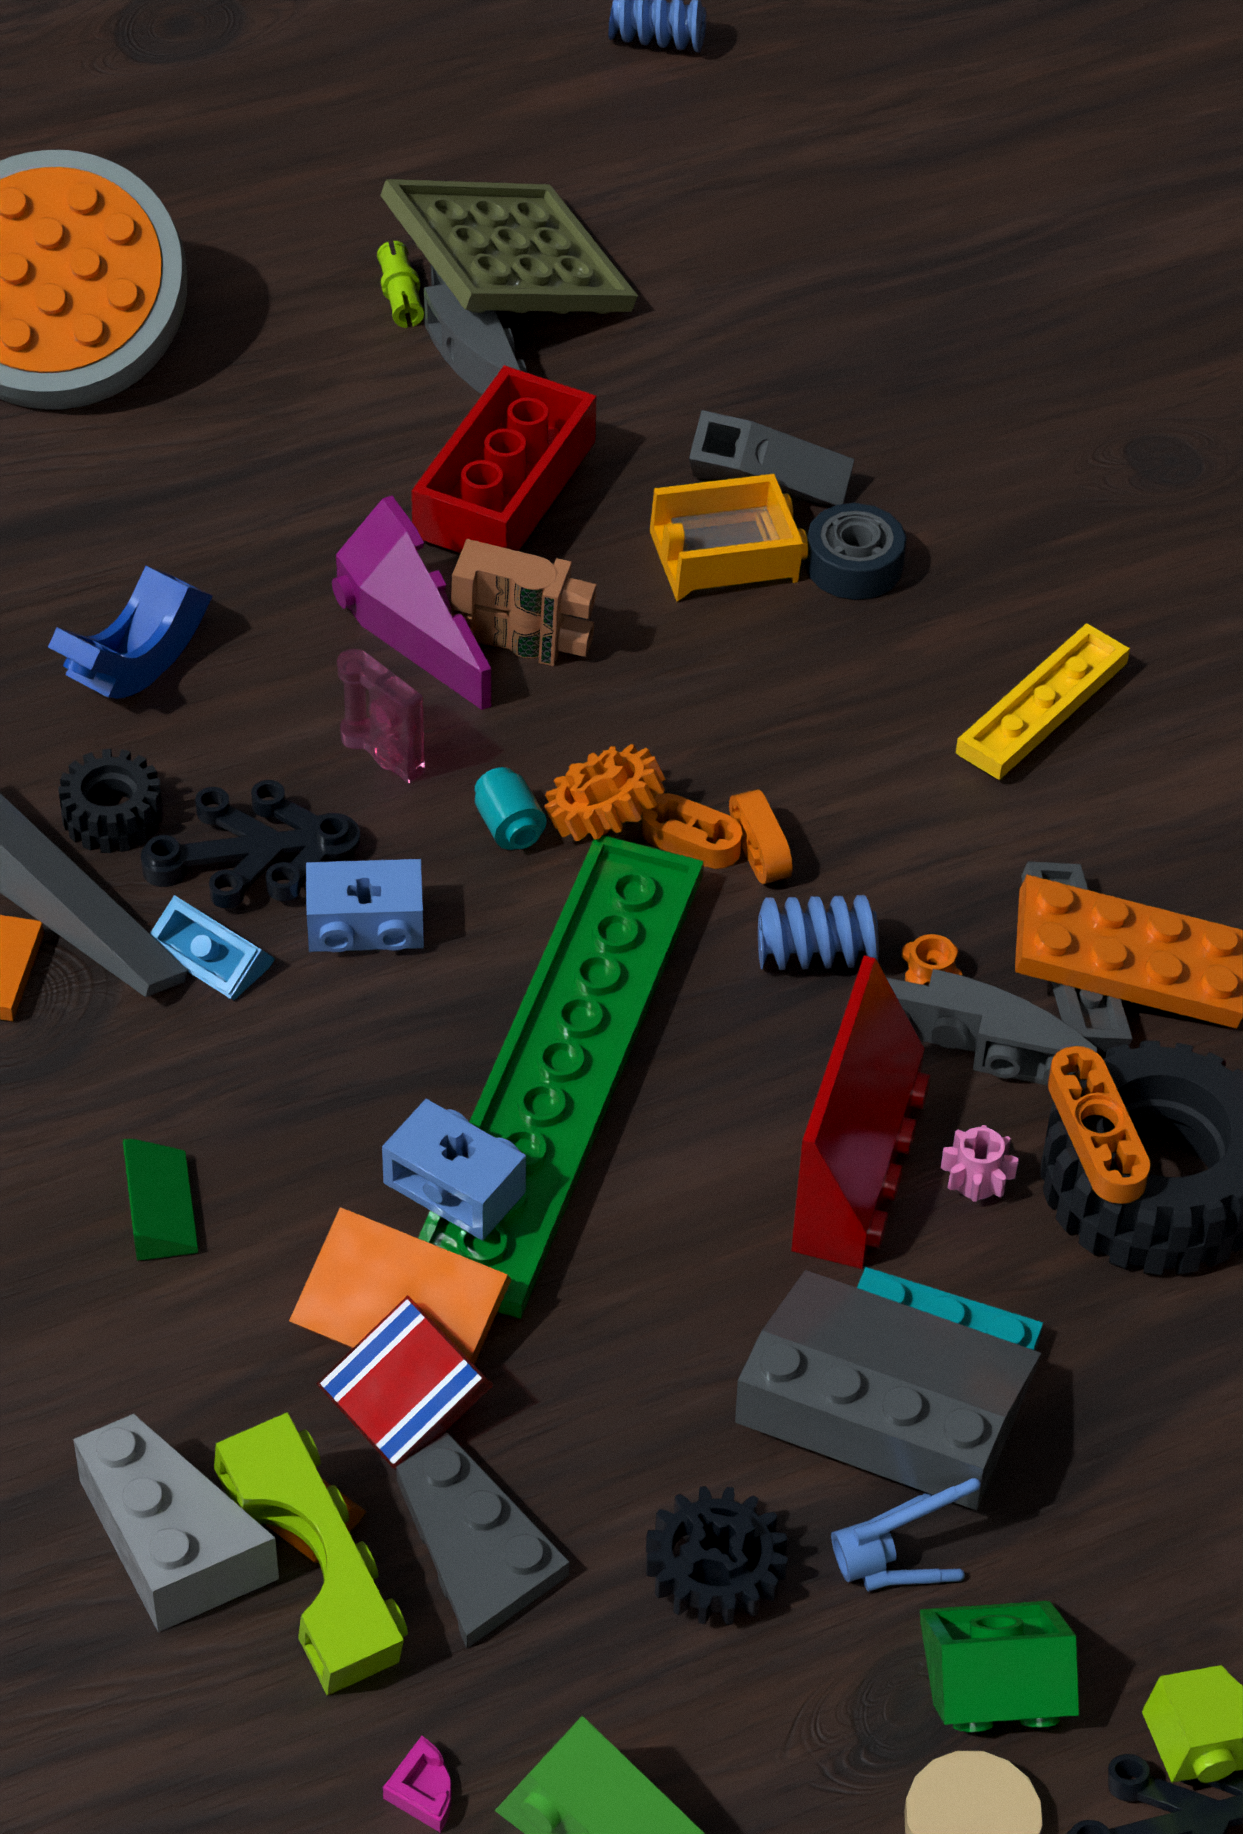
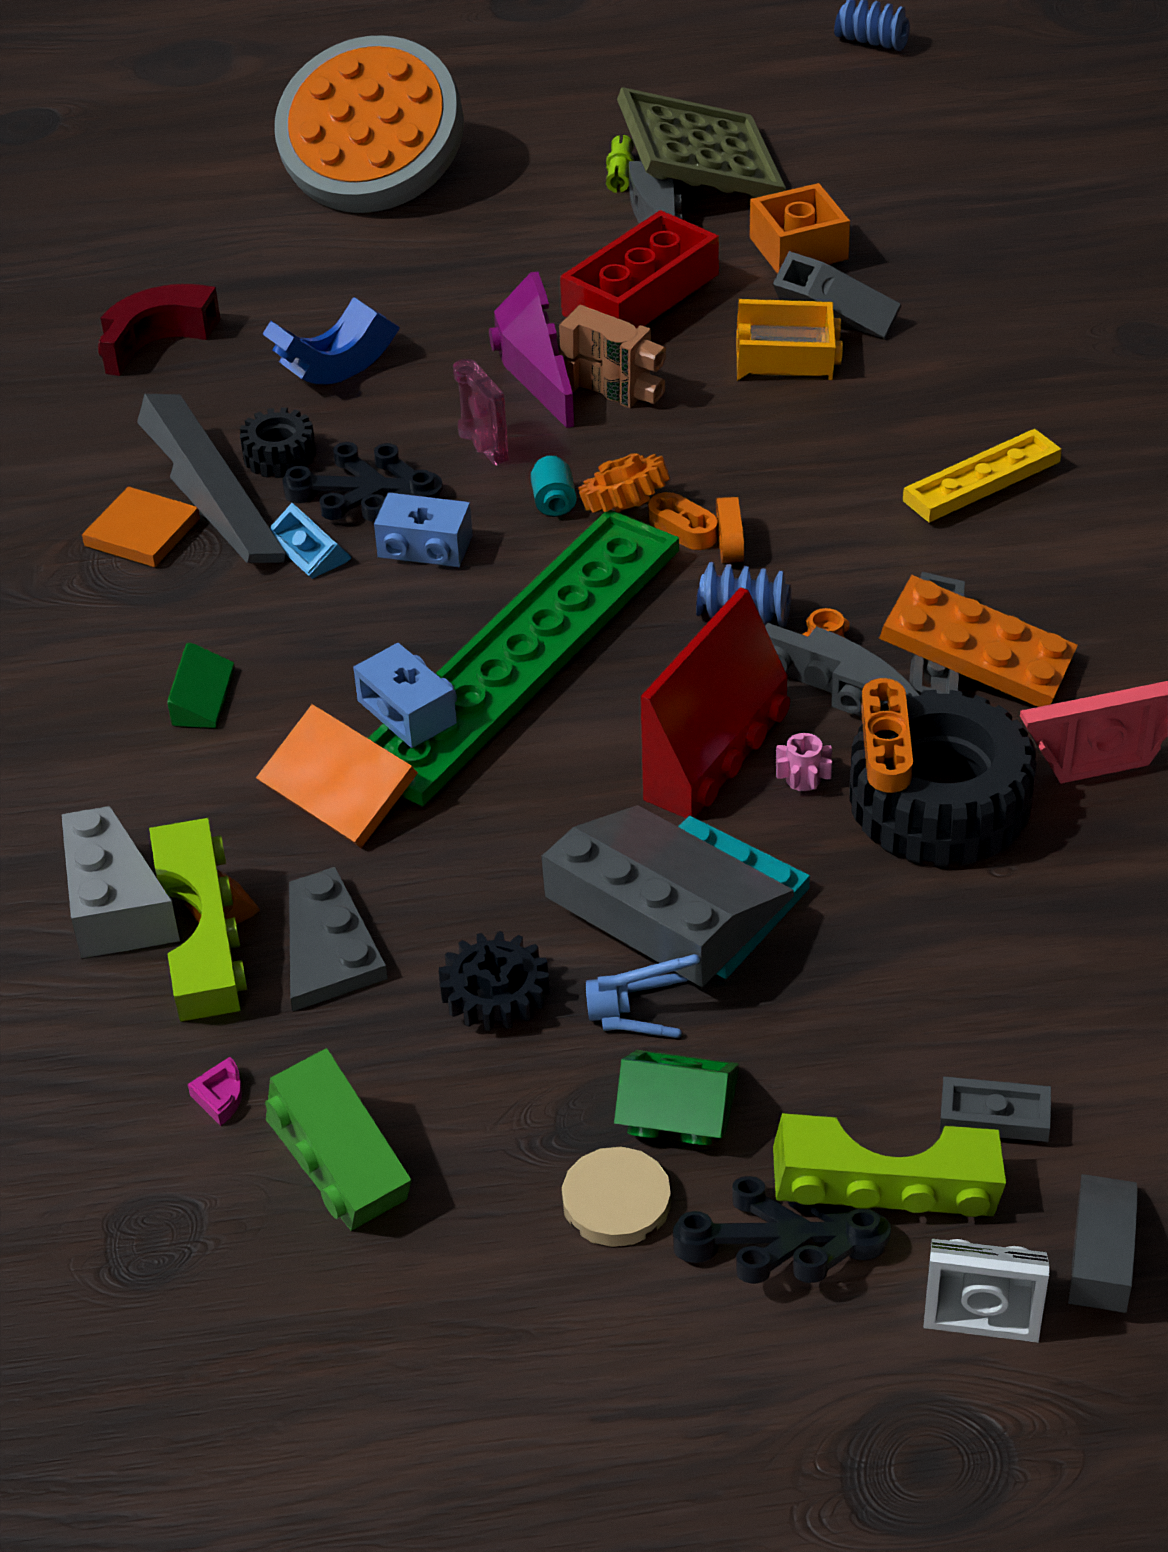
camera: 20 degrees right, 5 degrees down
(404, 1383) = (316, 827): tile -> none
(685, 362) = (799, 222): none -> orange brick
(855, 551) = (879, 363): black wheel -> none

